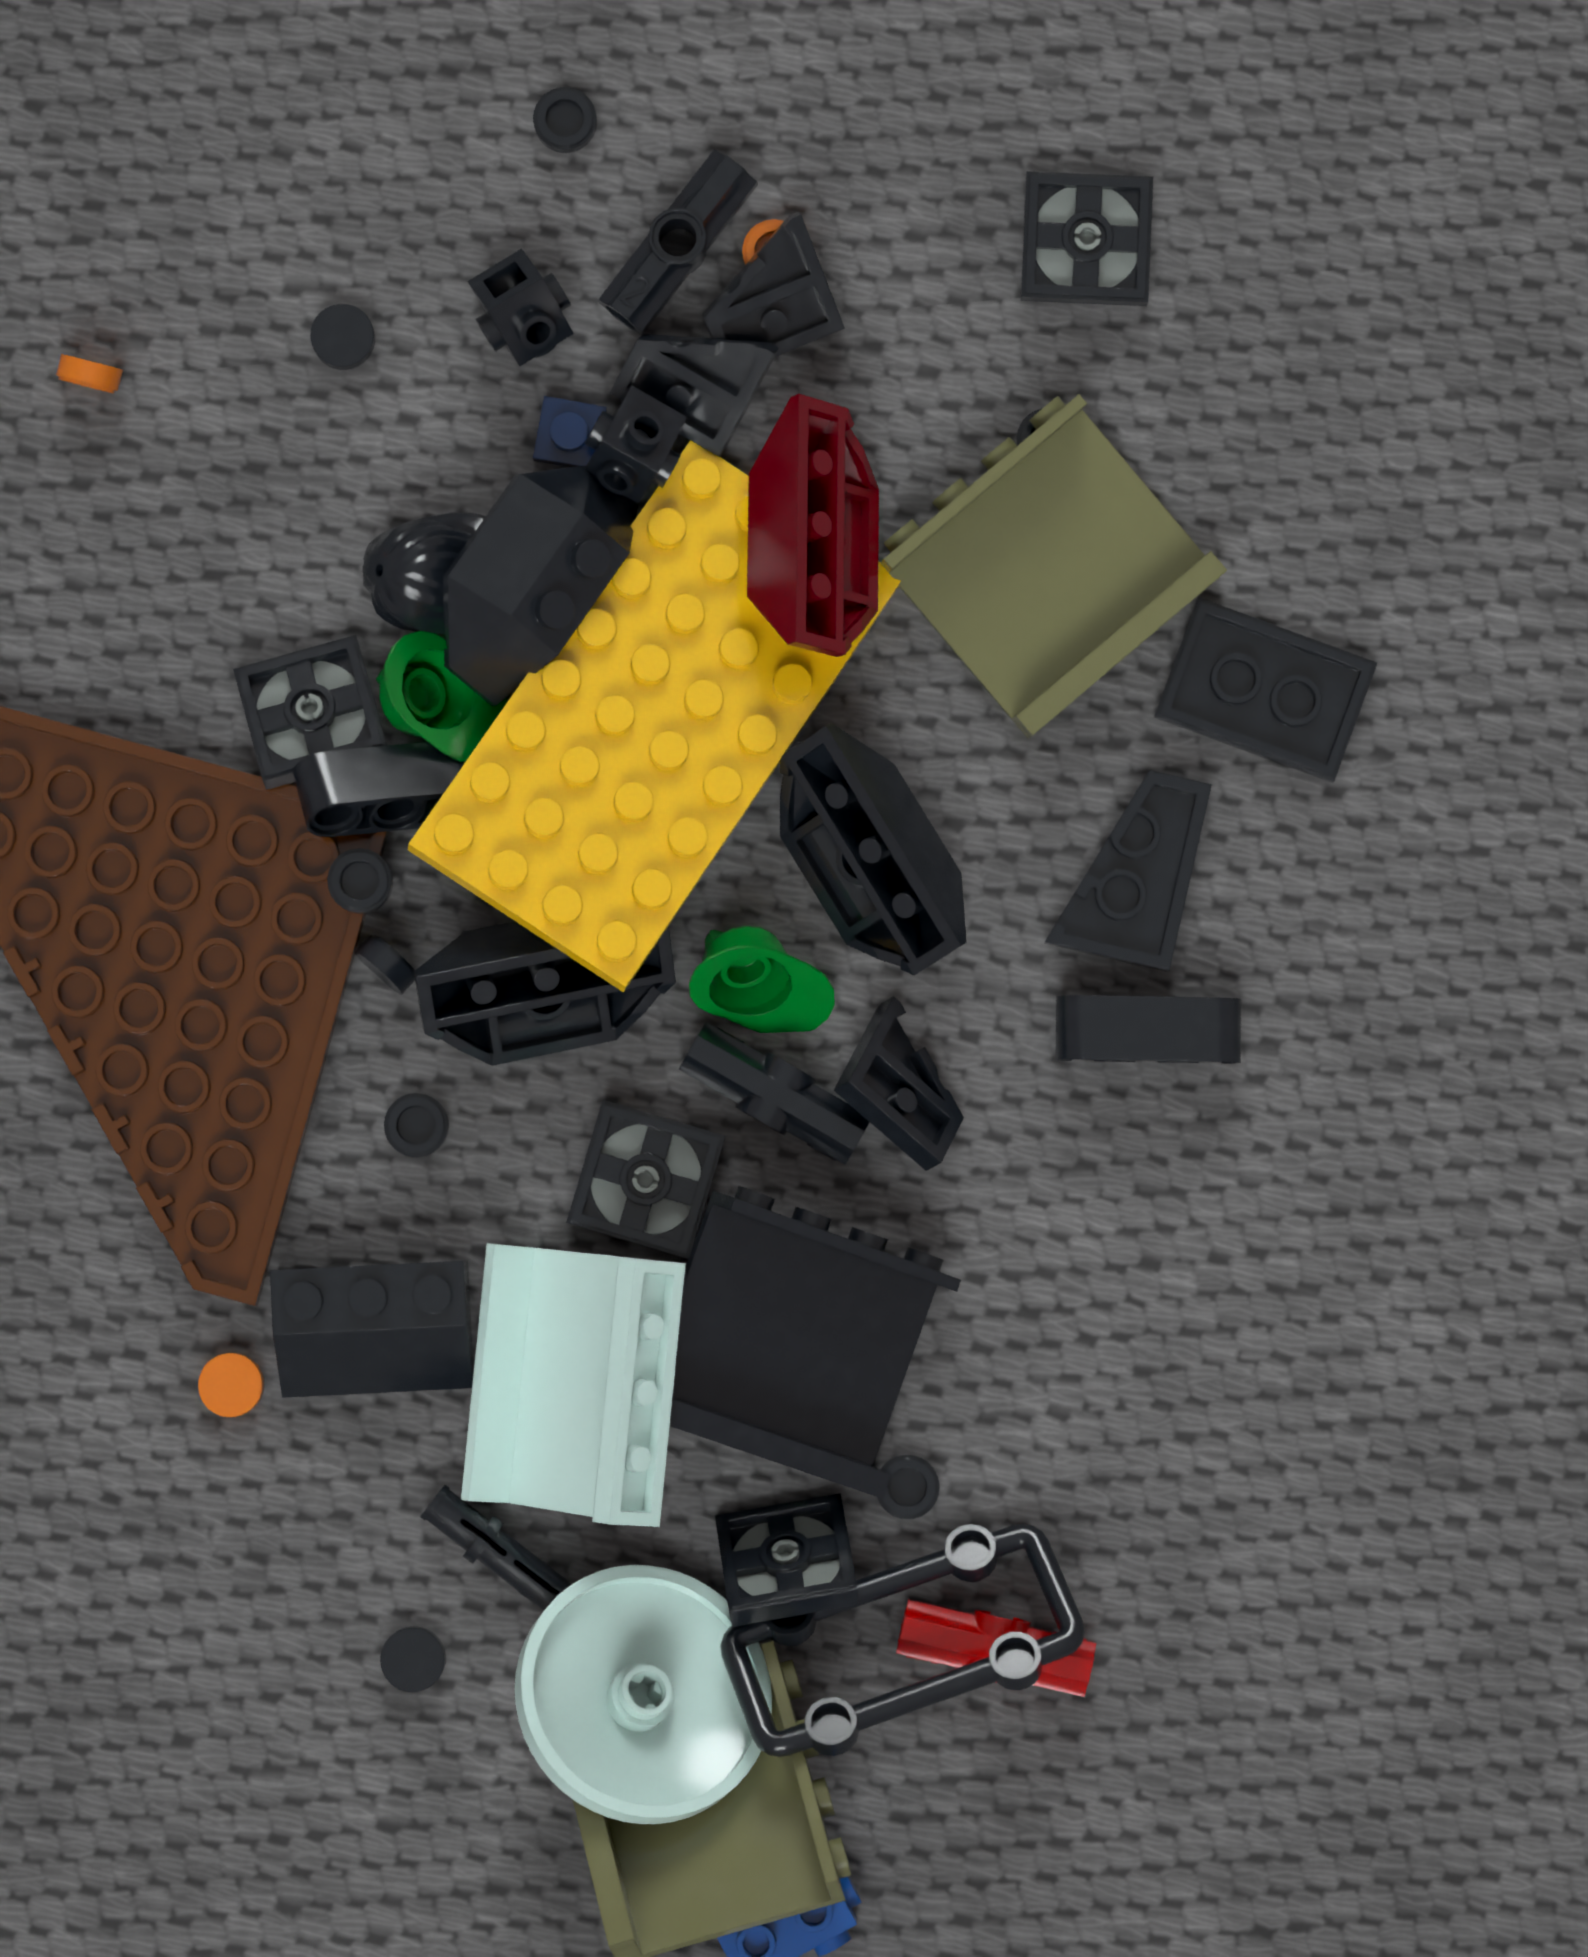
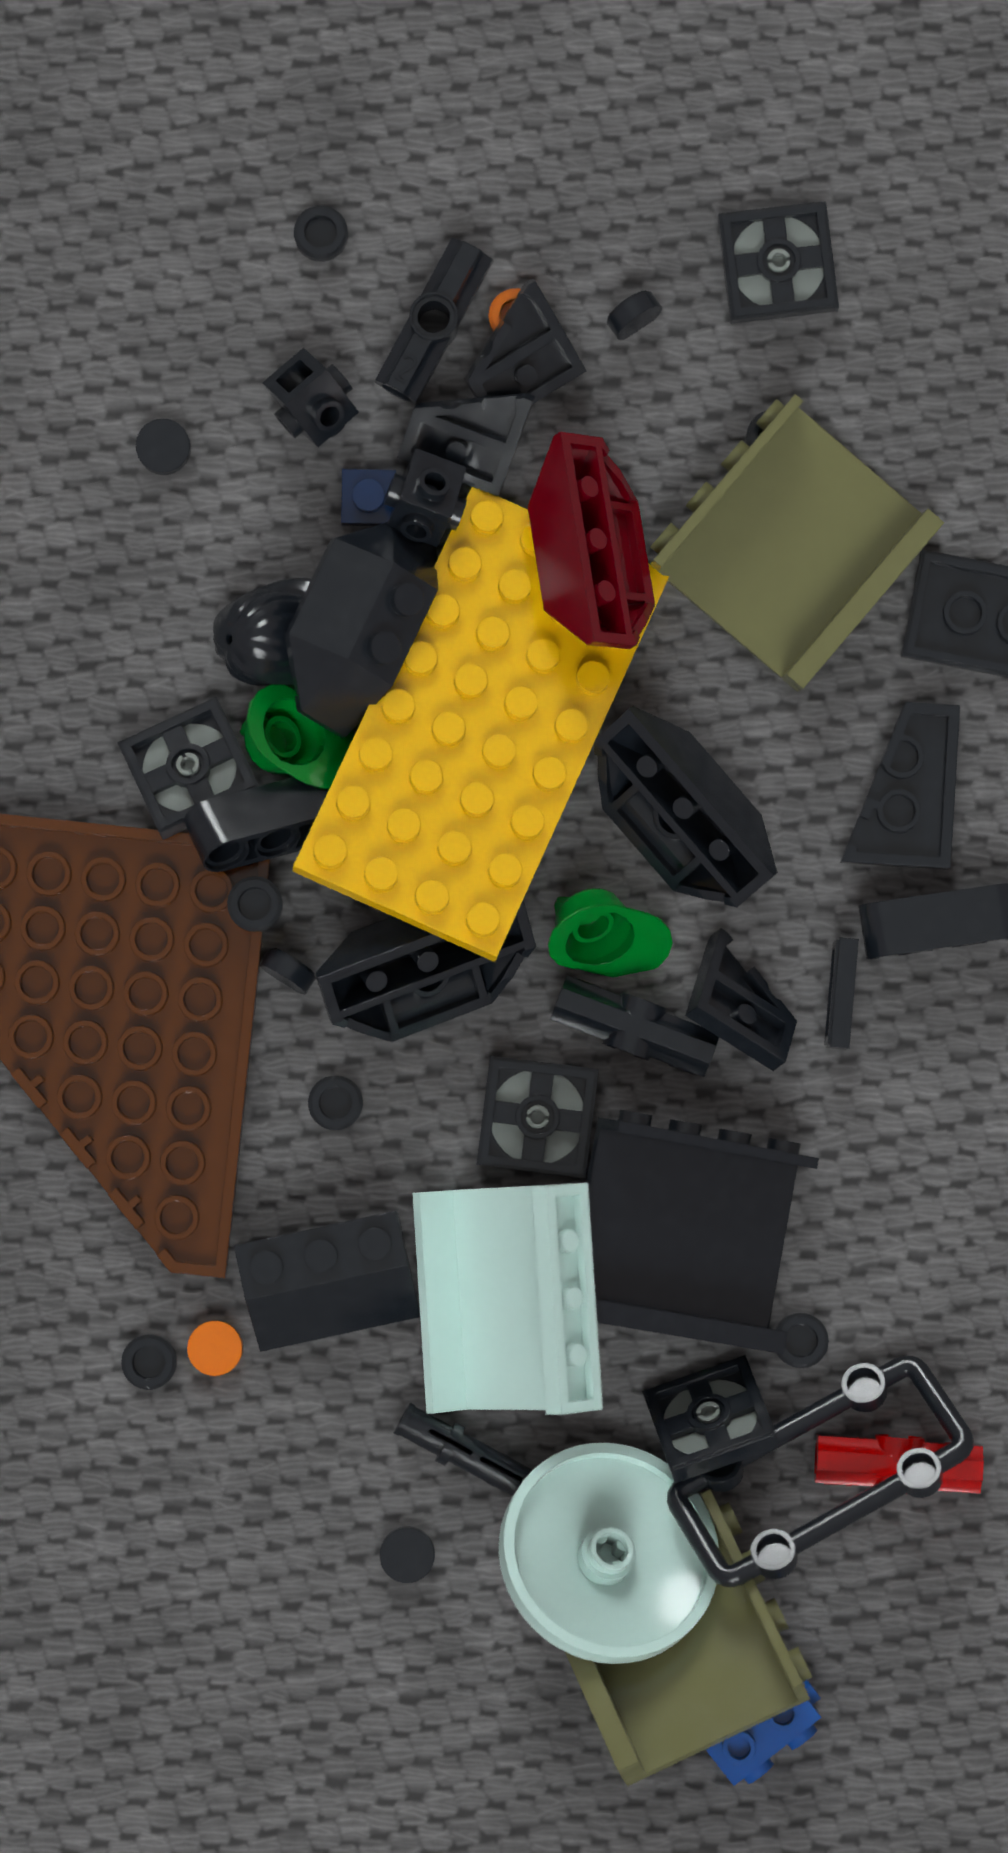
camera: 10 degrees left, 0 degrees up
(152, 1388) = (149, 1361): none -> black tile
(910, 271) = (633, 314): none -> black tile
(1019, 1094) = (841, 993): none -> black tile

